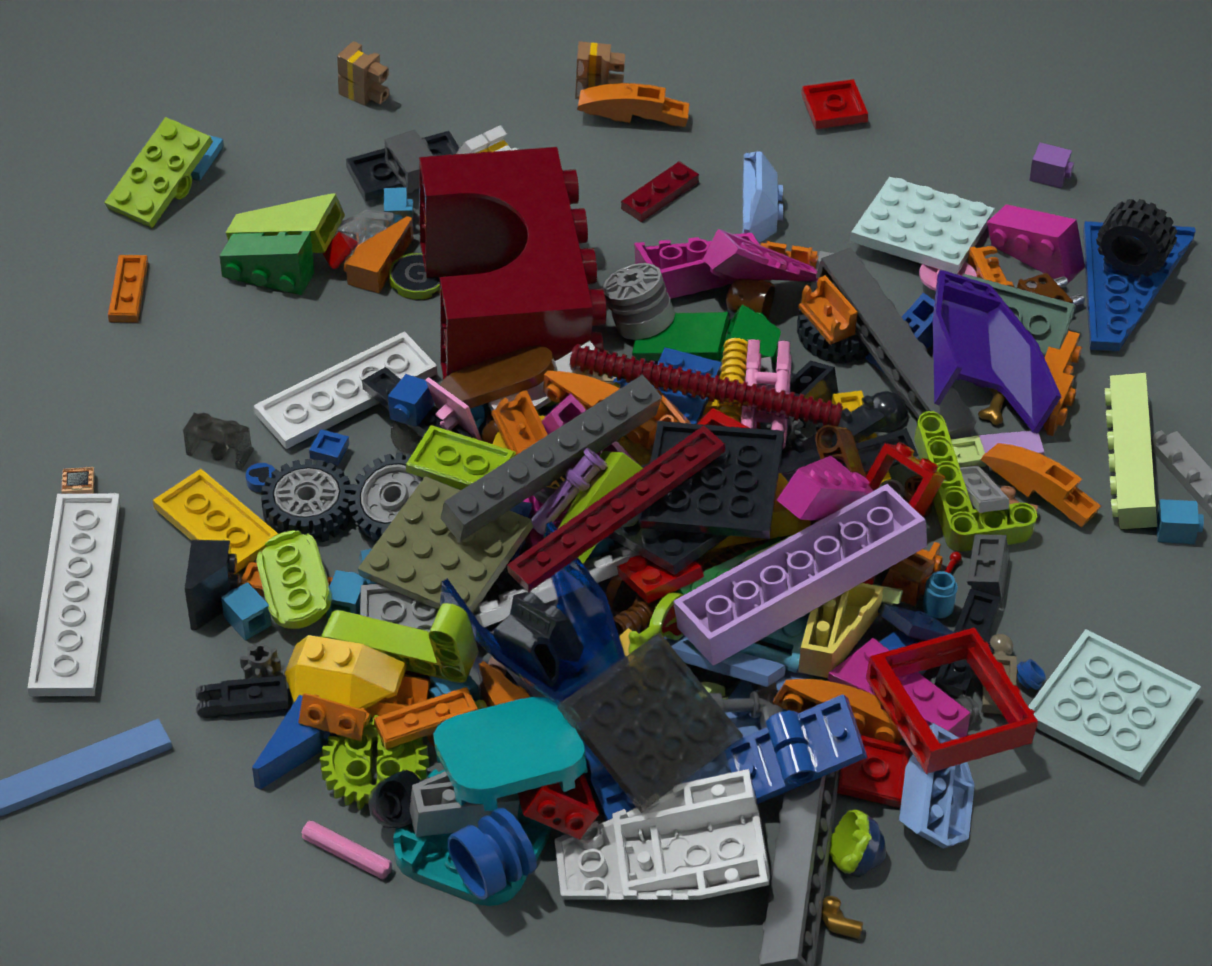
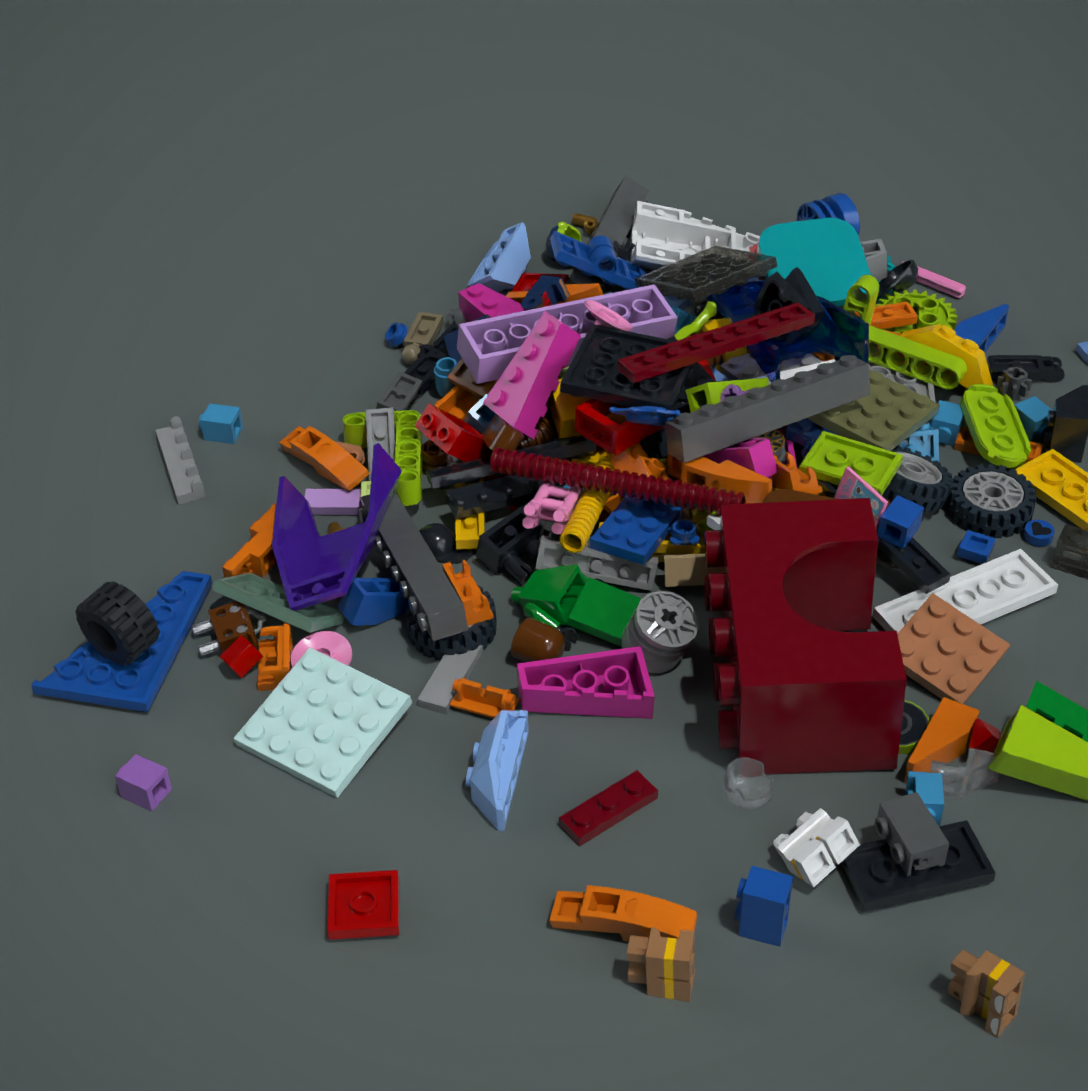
camera: 170 degrees left, 5 degrees down
(333, 716) = (960, 319): orange hinge -> none
(371, 328) = (948, 650): none -> nougat plate
(526, 108) = (764, 905): none -> blue brick
(683, 399) = (646, 414): none -> blue arm
(744, 539) = (607, 317): none -> bright pink dish
(747, 260) = (534, 632): dark pink wedge -> none
(769, 824) = (625, 252): none -> black bar
(847, 668) = (545, 292): none -> dark blue leg
(967, 644) = (466, 250): red window -> none
(1021, 266) = (241, 656): none -> red slope
(1039, 240) = (210, 679): dark pink wedge -> none
(1112, 704) = (343, 315): light aqua plate -> none
(1132, 451) = (227, 478): yellowish green brick -> none

